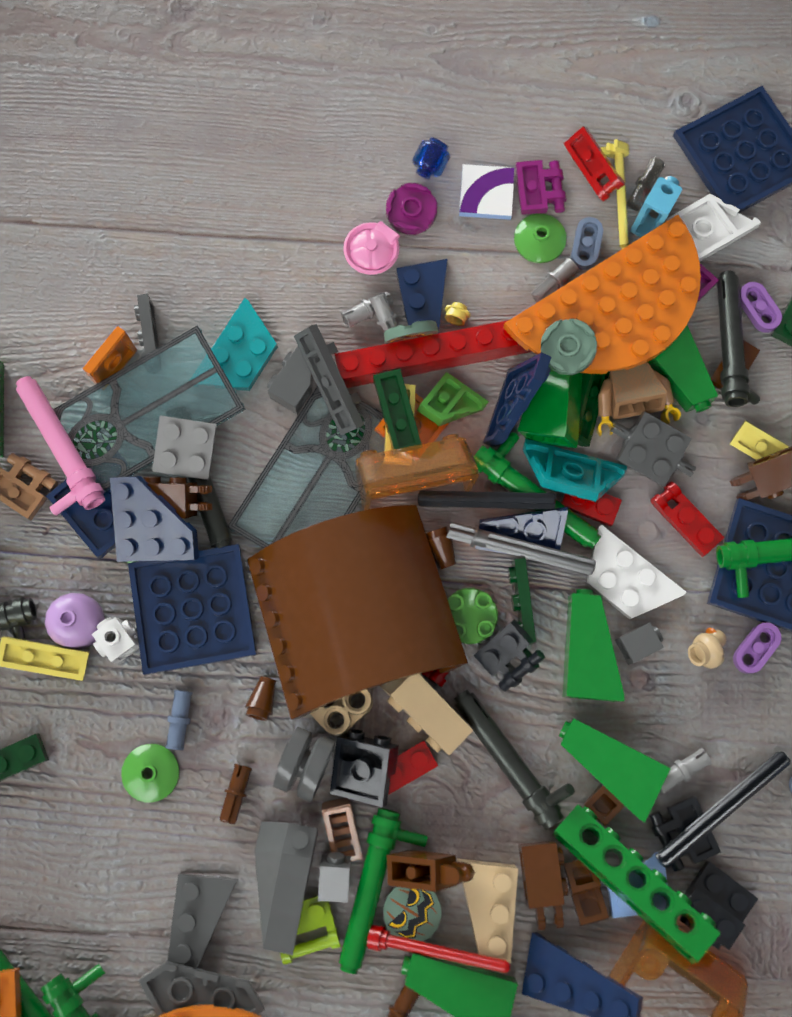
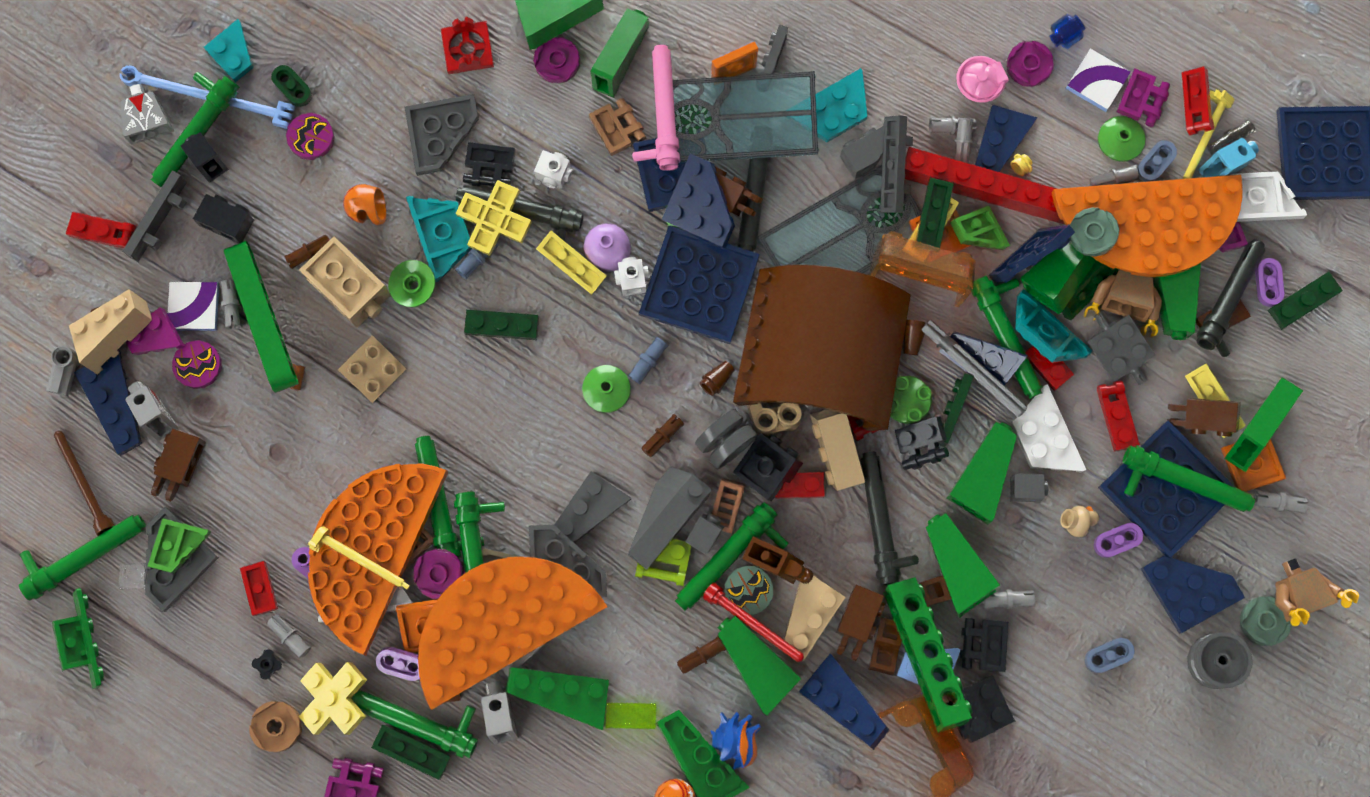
camera: 30 degrees right, 0 degrees up
(184, 447) = (757, 159): light grey plate -> none
(416, 330) = (982, 160): sand green tile -> none
(480, 499) = (967, 318): black axle -> none
(722, 809) = (1024, 640): black axle -> none

